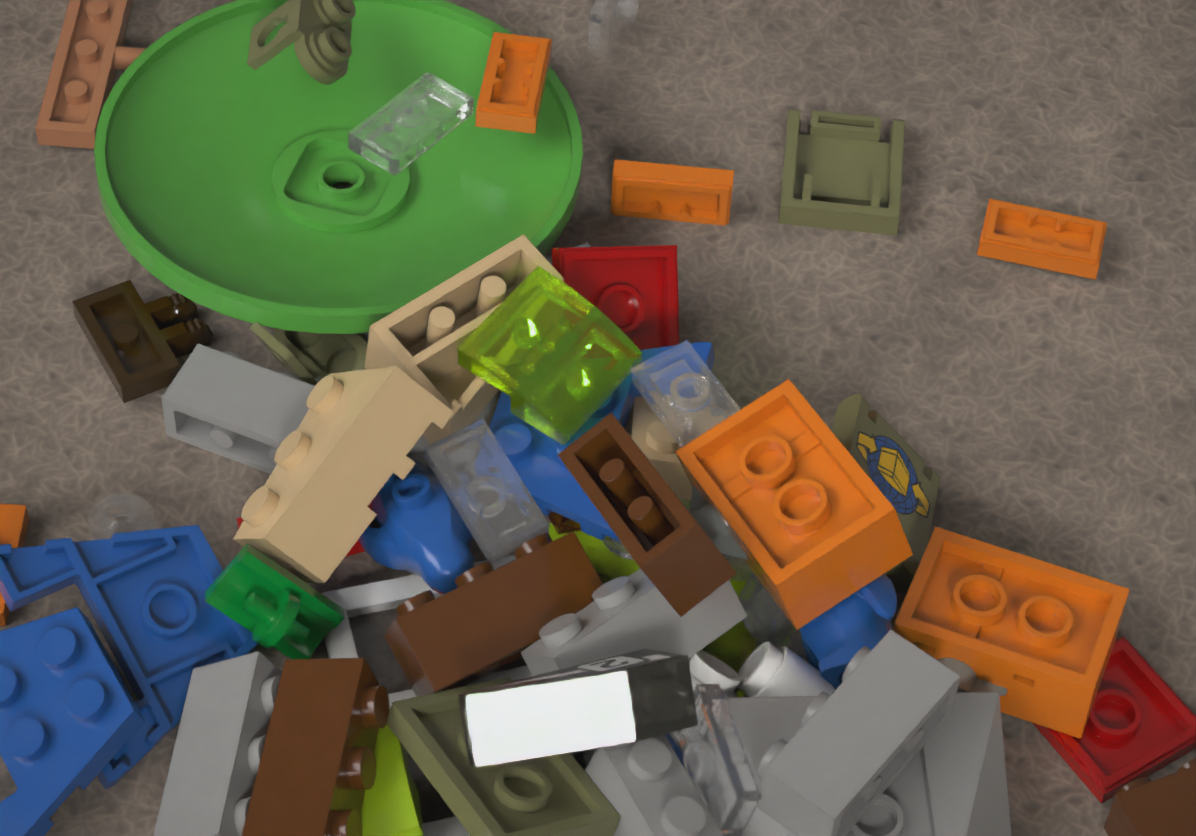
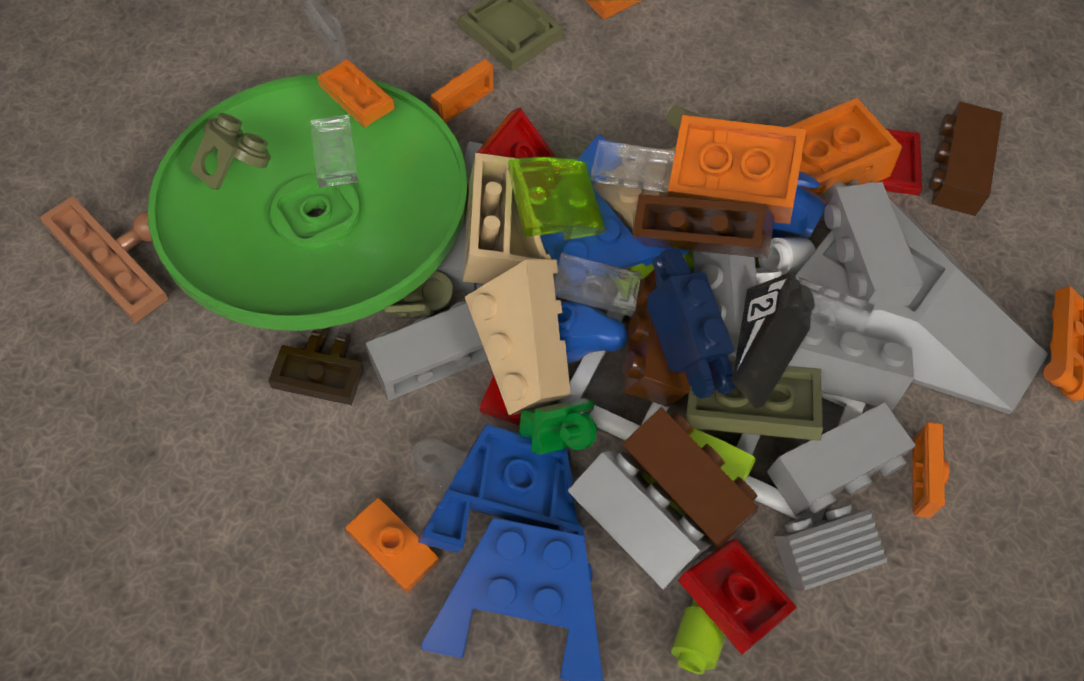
camera: 50 degrees left, 10 degrees up
(511, 603) = (690, 325): none -> dark blue hinge

